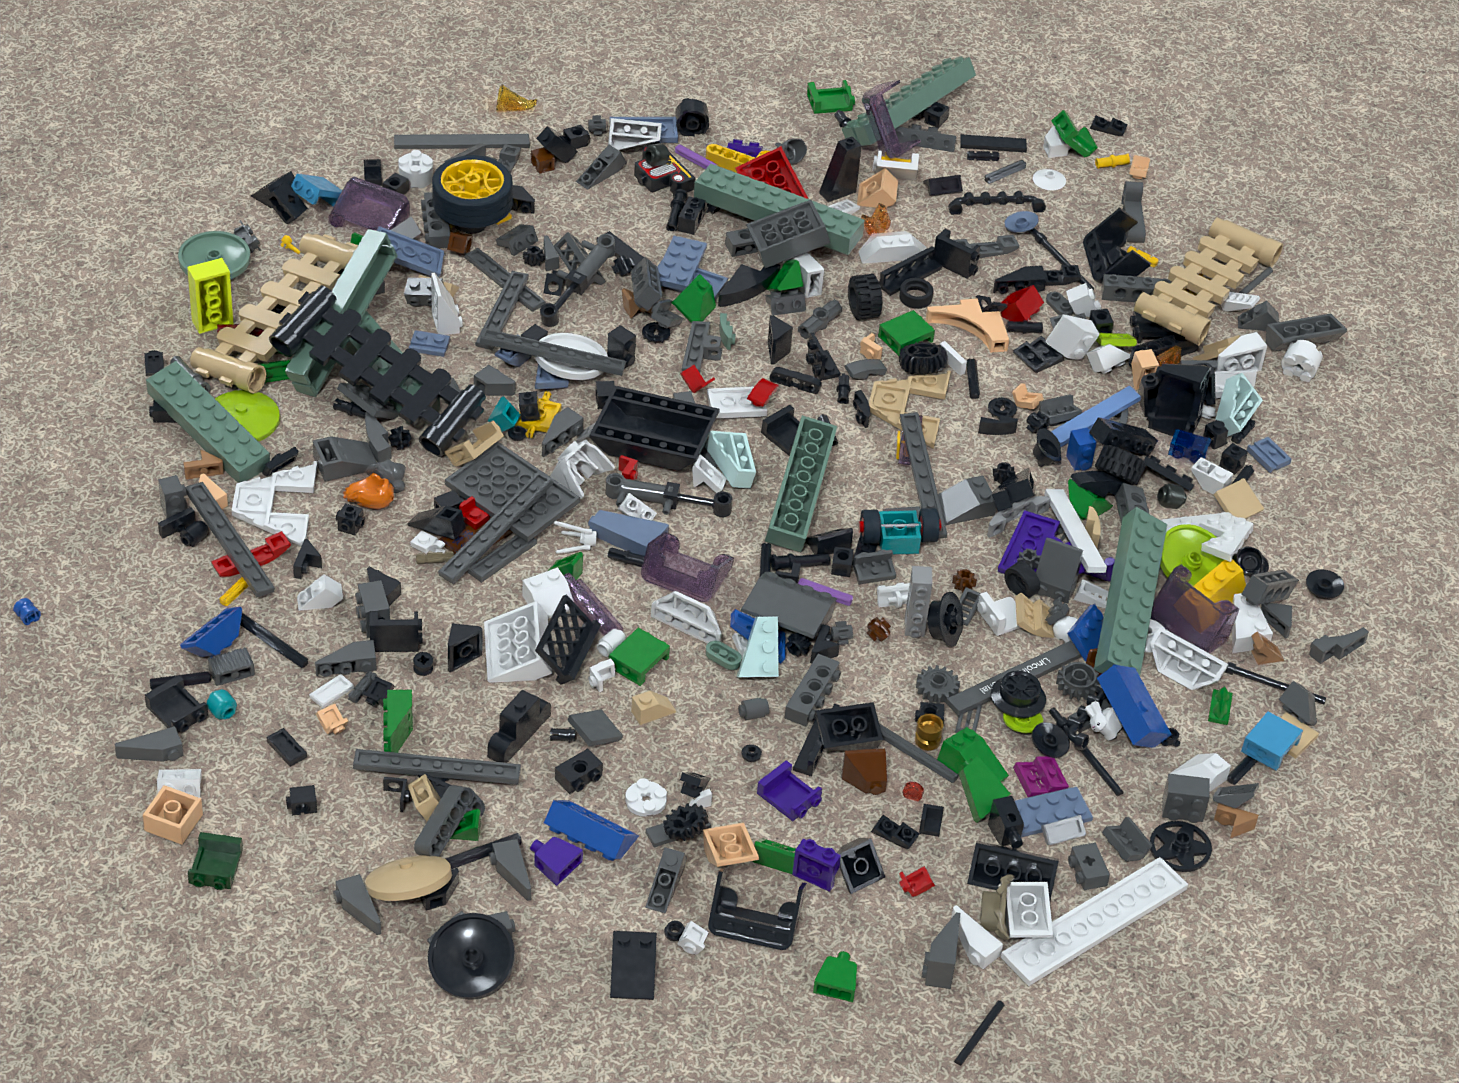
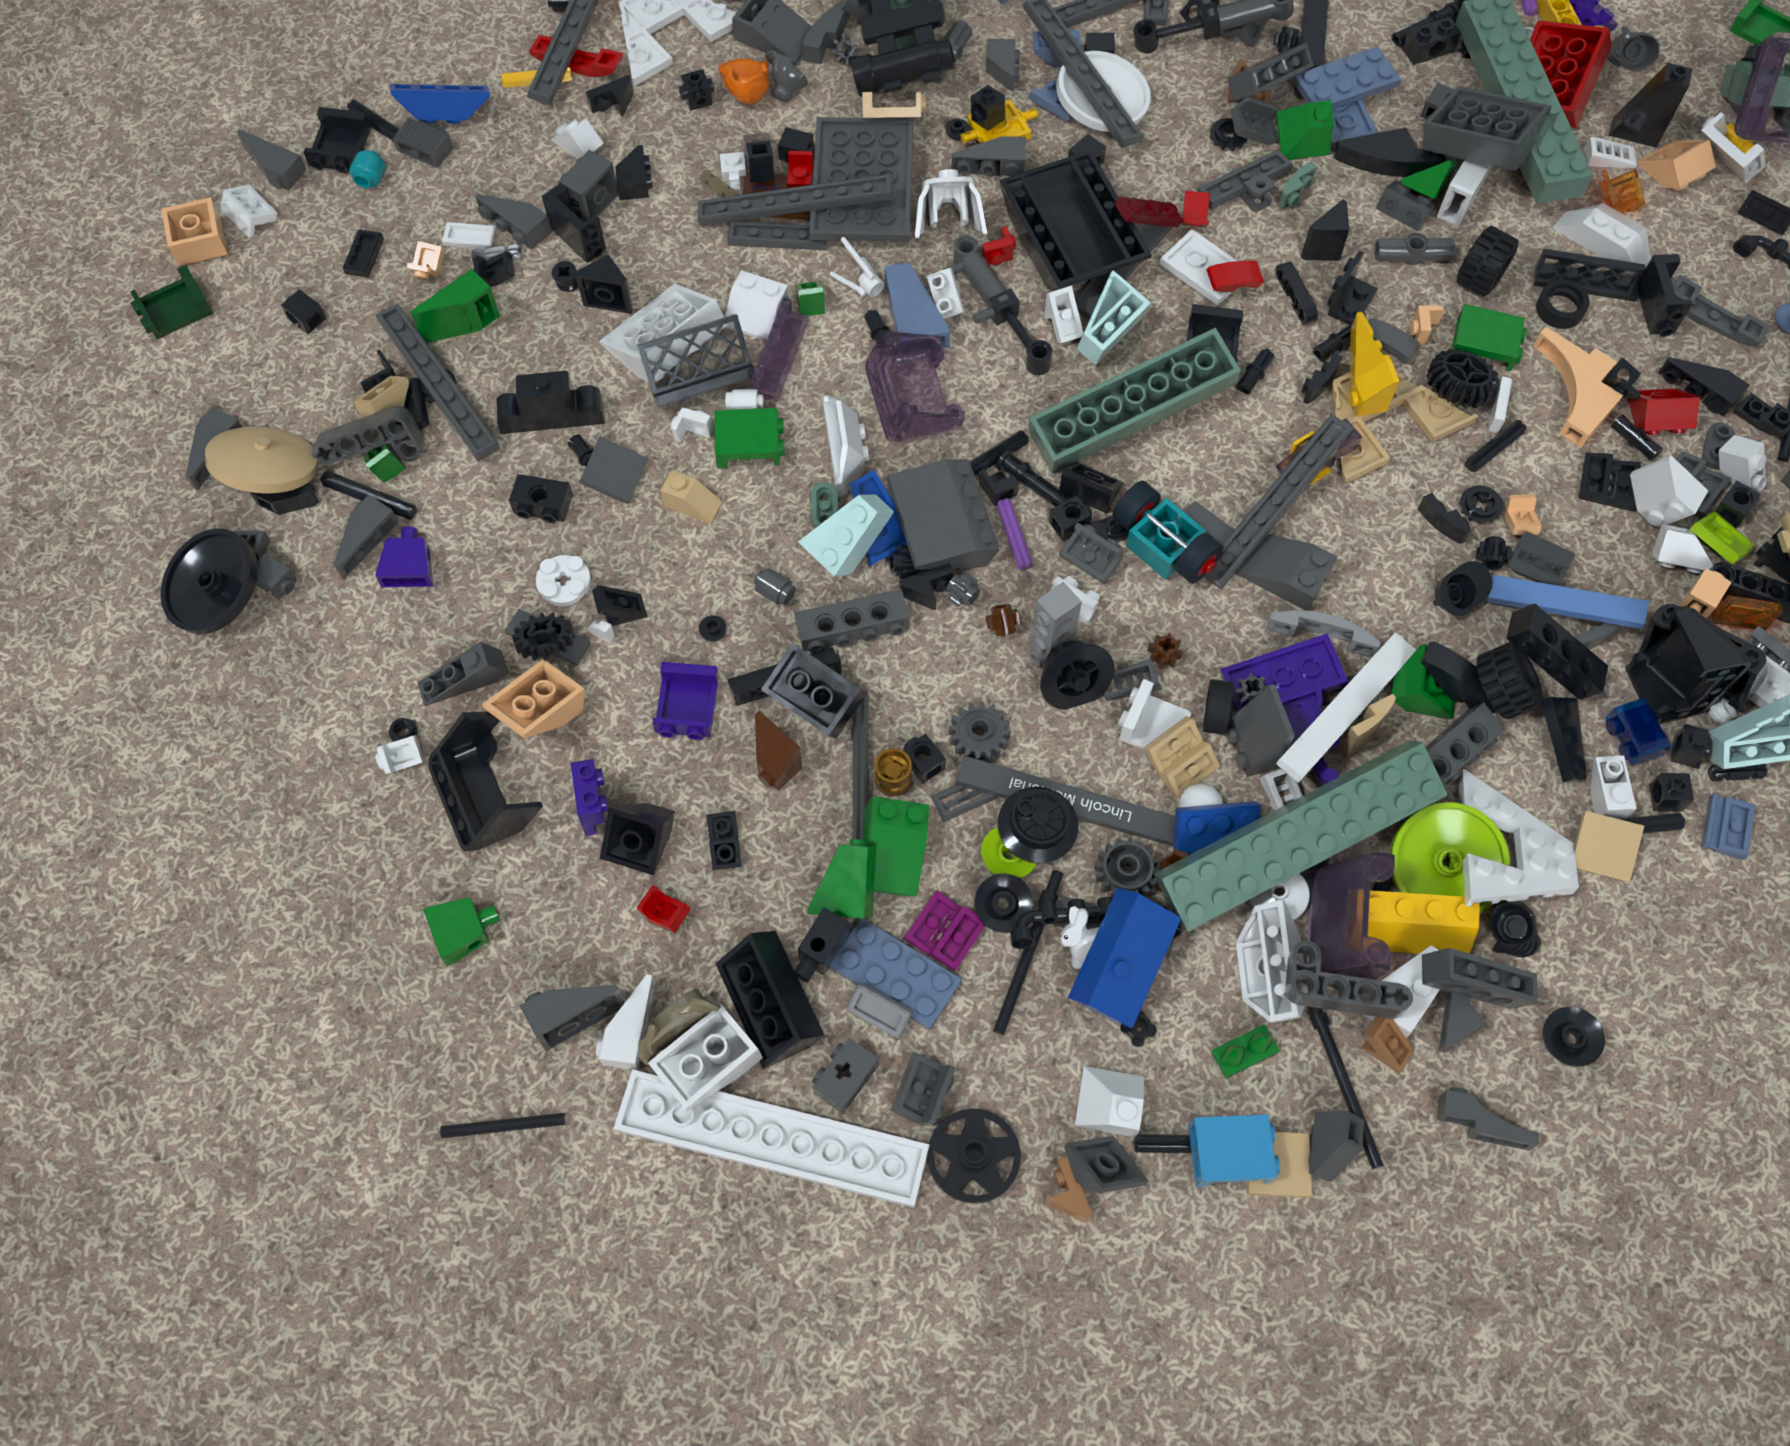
camera: 55 degrees right, 20 degrees up
(273, 641) = (490, 146): black axle -> none
(504, 414) = (958, 101): teal slope -> none
(590, 829) = (474, 561): blue slope -> none
(622, 345) = (1160, 119): black brick -> none
(633, 965) = (320, 727): black slope -> none
(684, 392) = (1148, 212): none -> dark red plate
(775, 855) = (590, 741): green slope -> none
(887, 385) = (1371, 373): none -> yellow wedge
(913, 791) = (796, 817): clear red tile -> none
(931, 820) = (765, 863): black panel -> none
(1003, 472) = (1374, 575): black gear -> none
(1014, 489) = (1351, 603): black slope -> none
(1057, 612) = (1210, 776): dark grey plate -> none
(1081, 449) = (1493, 623): blue brick -> none
(1171, 496) = (1533, 768): pearl dark grey head -> none
(1185, 798) = (1040, 1113): dark grey brick -> none
(1222, 643) = (1346, 986): none -> dark grey beam

